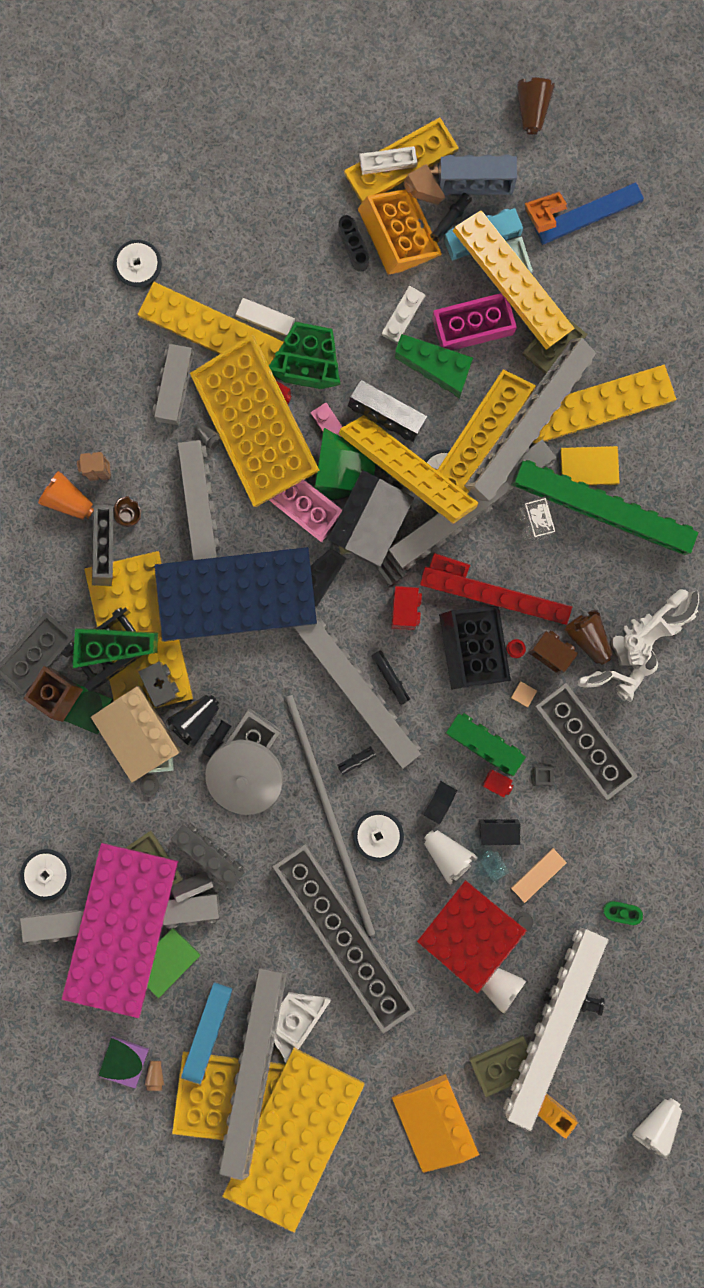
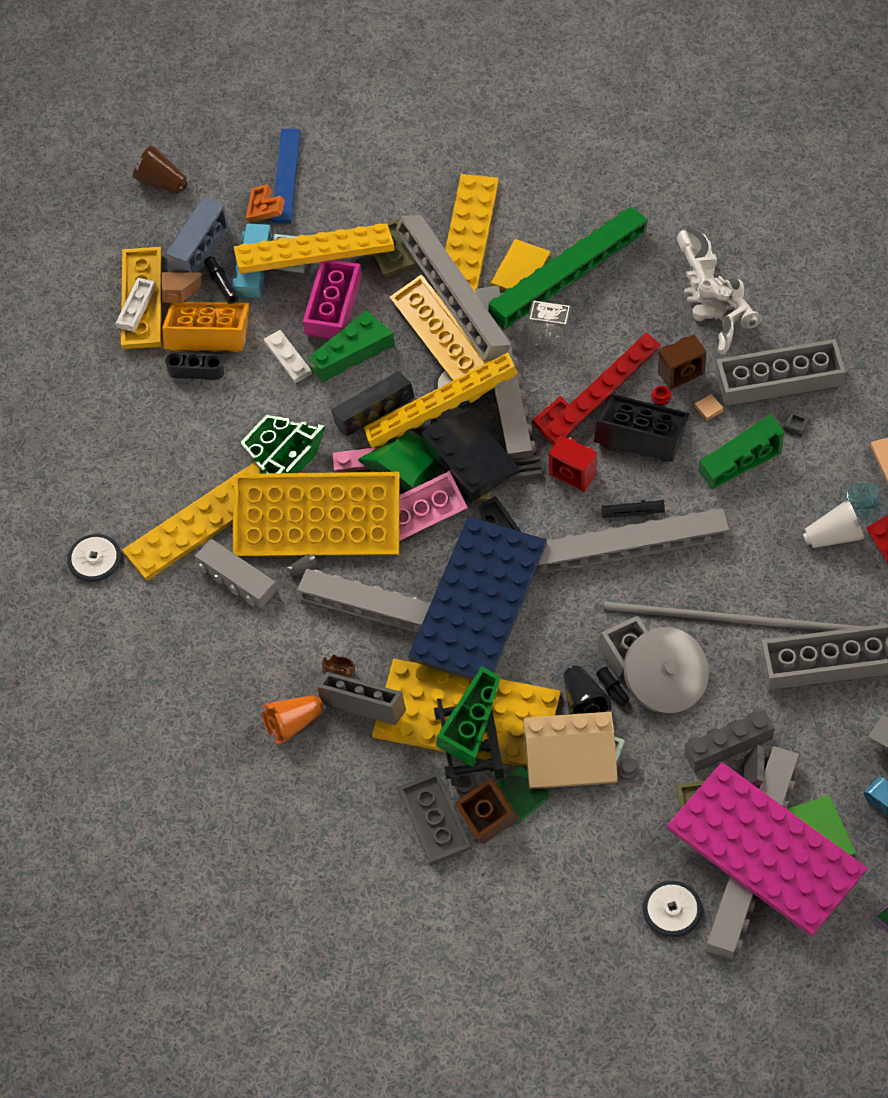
camera: 55 degrees left, 25 degrees down
(94, 466) = (276, 673): medium nougat brick -> none
(150, 679) = (521, 699): dark grey brick -> none
(265, 317) = (217, 470): white tile -> none
(356, 760) = (700, 572): black pin -> none
(383, 848) = (780, 596): white wheel -> none
(439, 802) = (780, 519): black slope -> none
(498, 783) = (784, 461): red brick -> none
(500, 831) = (833, 478): black hinge -> none
(590, 636) = (680, 324): reddish brown cone -> none

